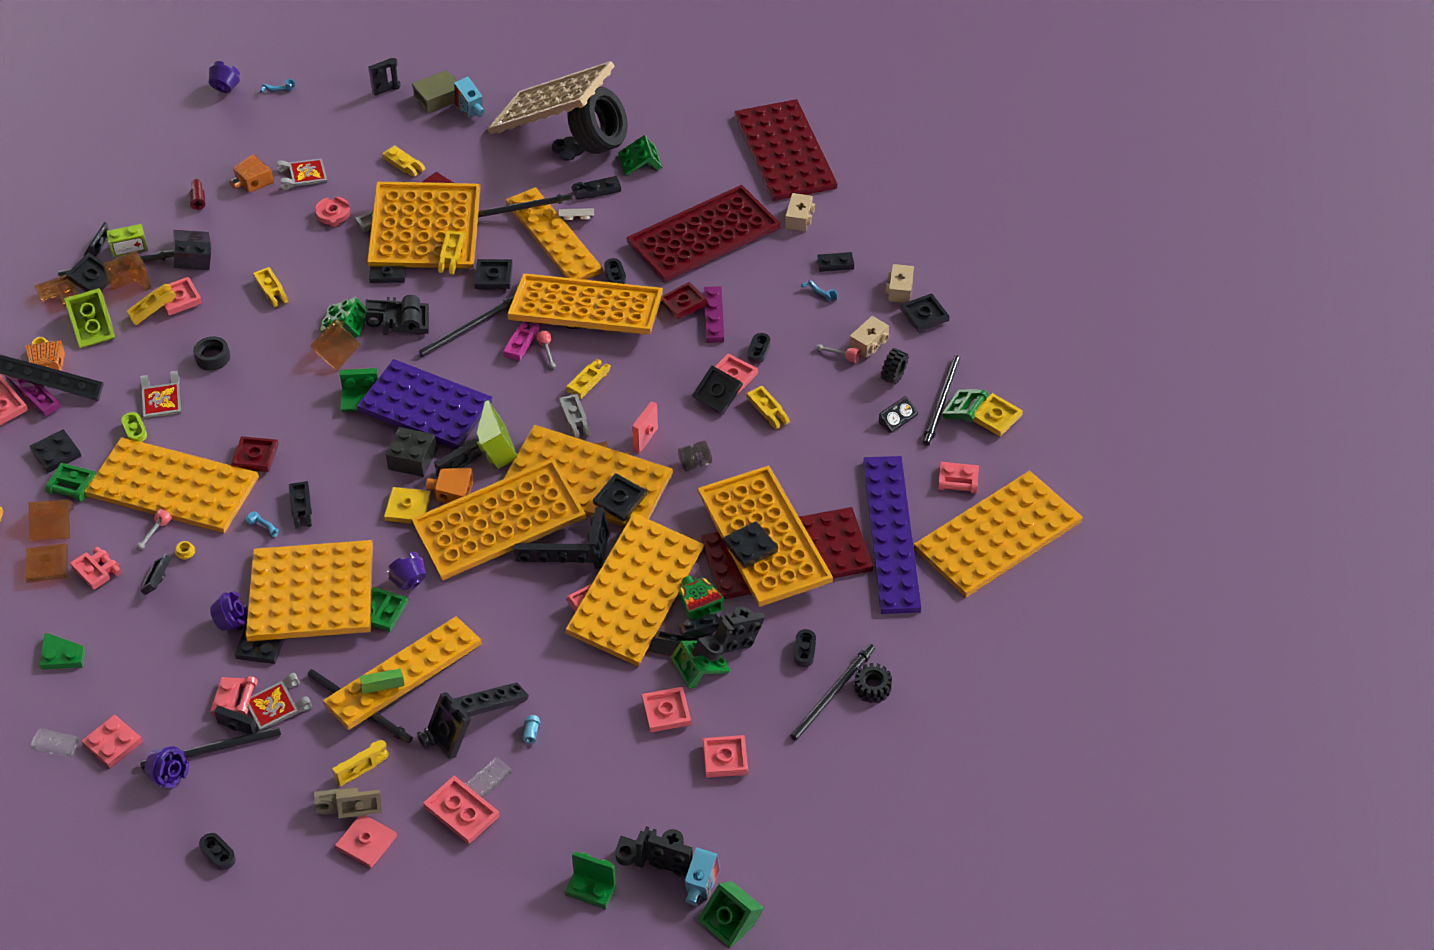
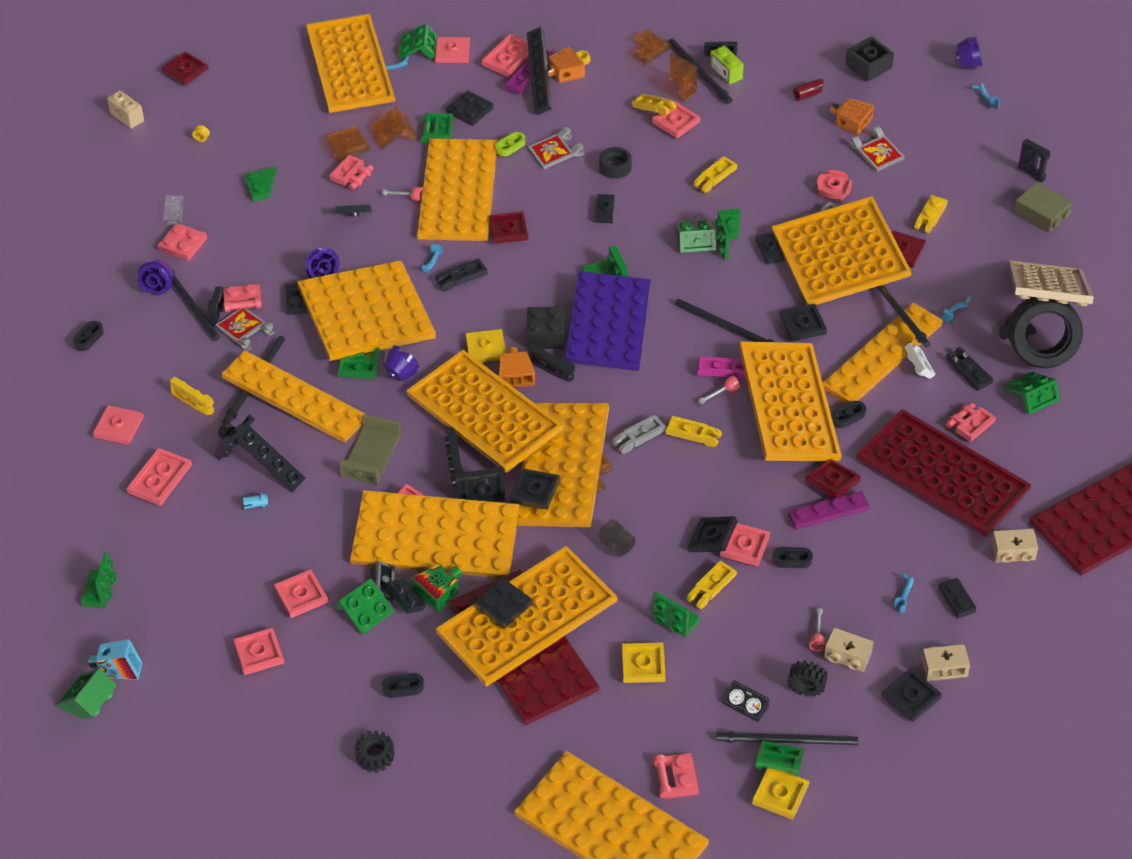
camera: 75 degrees right, 0 degrees up
(88, 274) = (668, 47): black plate -> none
(90, 318) = (623, 74): lime slope -> none
(184, 550) = (386, 219): yellow plate -> none
(186, 142) = (869, 58): none -> pearl dark grey brick
(191, 249) = (736, 106): black slope -> none
(268, 376) = (605, 208): none -> black plate
(335, 344) = (651, 234): clear orange bracket -> none
(348, 802) = (147, 397): dark tan plate -> none
(361, 289) = (727, 228): none -> green bracket
(381, 681) = (270, 379): bright green slope -> none
(403, 316) = (712, 270): black plate -> none
(451, 250) = (808, 278): yellow hinge -> none
(468, 98) = (1039, 230): medium azure torso -> none
(489, 777) = (196, 486): clear plate -> none
(495, 438) = (581, 377): lime slope -> none
(504, 622) = (371, 450): none -> olive panel
(529, 184) = (948, 315): none -> dark azure piece
(645, 427) = (634, 486): coral plate -> none
(661, 202) = (974, 425): none -> coral plate
(661, 852) = (134, 619): black plate -> none
(732, 634) = (389, 616): black plate -> none
(795, 437) = (673, 615): none -> green bracket
(836, 471) = (643, 662): none -> yellow plate
(863, 656) = (409, 738): black bar -> none
(891, 535) = (577, 730): dark purple plate -> none

